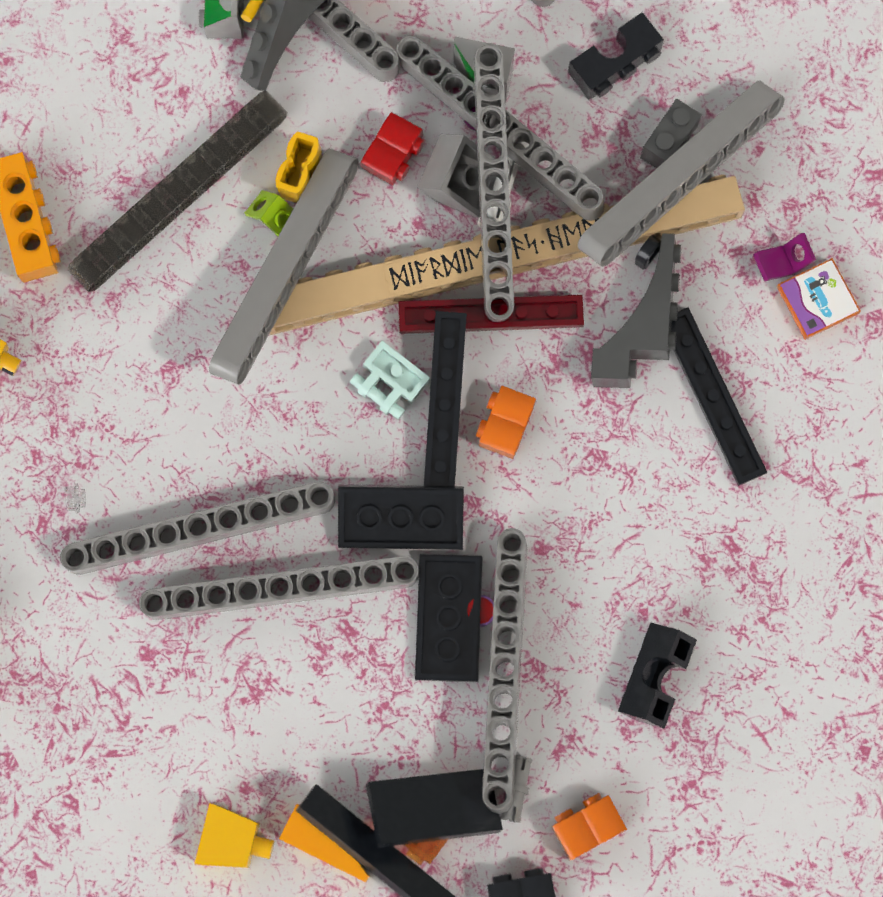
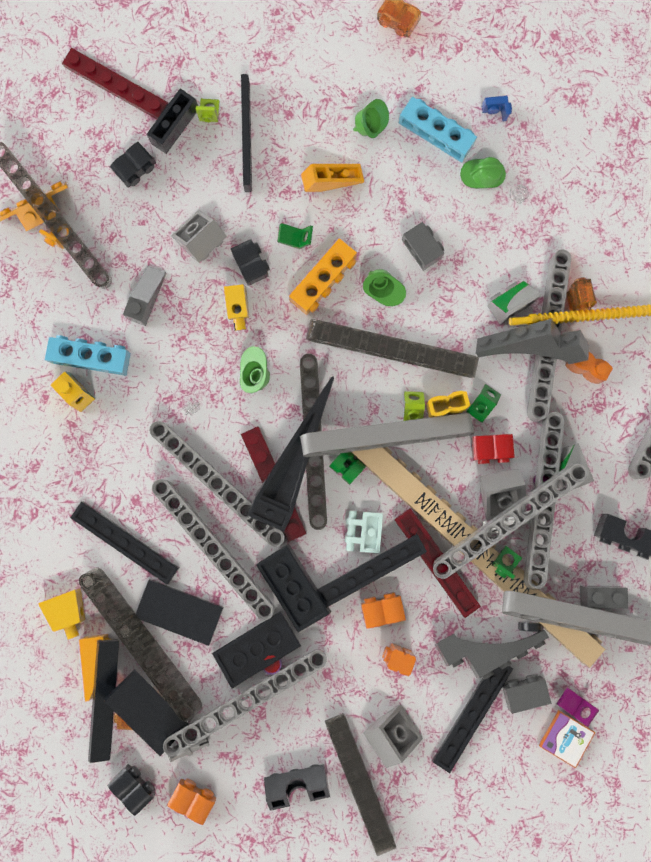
camera: 55 degrees right, 5 degrees up
(73, 65) = (423, 245): none -> dark grey brick
(82, 383) = (253, 370): none -> piece
(93, 148) = (384, 288): none -> bright green piece
(192, 703) = (124, 542): none -> black tile
(194, 341) = (312, 373): none -> clear smoke beam
(248, 457) = (264, 463): none -> dark red plate
(262, 447) = (279, 491): none -> black plate
(301, 349) = (348, 474): none -> green wheel
(326, 772) = (141, 644): none -> clear smoke beam
(329, 123) = (484, 403): none -> green bracket
(333, 689) = (179, 612): none -> black tile
(551, 233) = (503, 570): none -> green bracket
(579, 437) = (399, 659): none -> orange brick
(674, 512) = (393, 736): none -> light grey slope
(706, 593) = (360, 784): none -> clear smoke beam
(729, 310) = (526, 693): none -> dark grey brick

